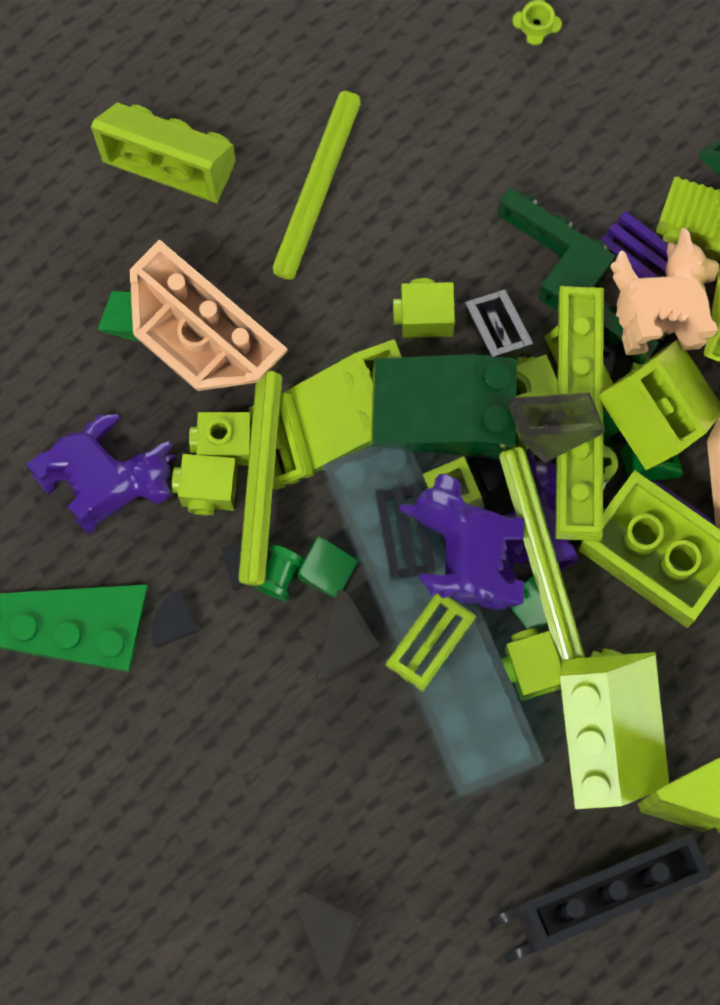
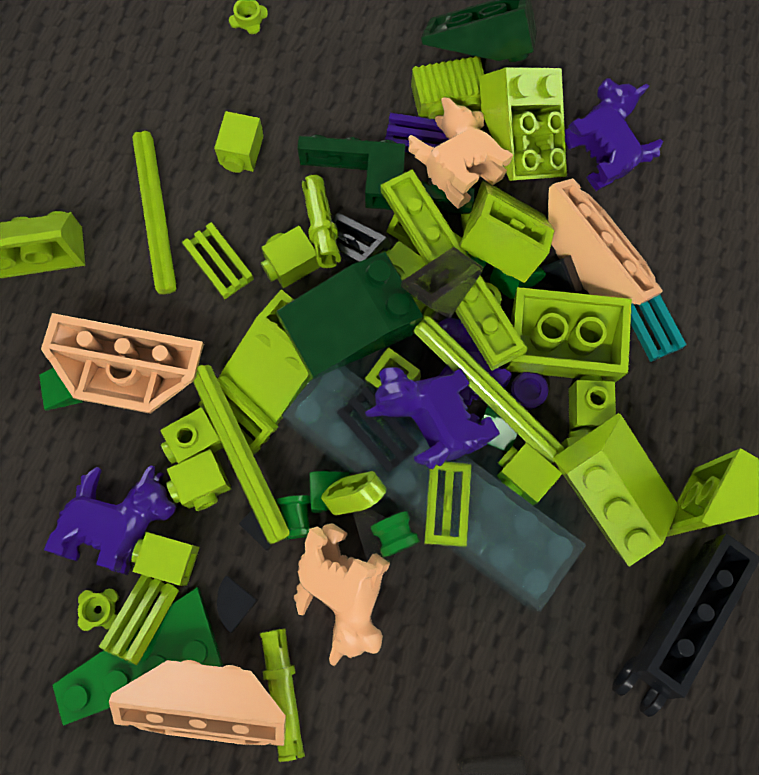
camera: 35 degrees left, 0 degrees up
(39, 539) = (86, 610): none -> lime plate
(74, 576) = (135, 616): none -> lime tile
(90, 692) = (201, 704): none -> light nougat wedge
(133, 538) = (164, 559): none -> lime brick
(170, 729) = (281, 689): none -> lime pin
(286, 663) = (345, 587): none -> light nougat animal
(347, 579) = (354, 493): none -> lime beam
(348, 239) = (201, 238): none -> lime tile
(362, 640) = (395, 534): none -> green wheel
(445, 159) = (239, 142): none -> lime brick
(474, 300) = (322, 229): none -> lime pin
(591, 584) = (529, 389): none -> dark purple tile
(645, 630) = (591, 402): none -> lime brick
(699, 486) = (562, 275): none -> black tile

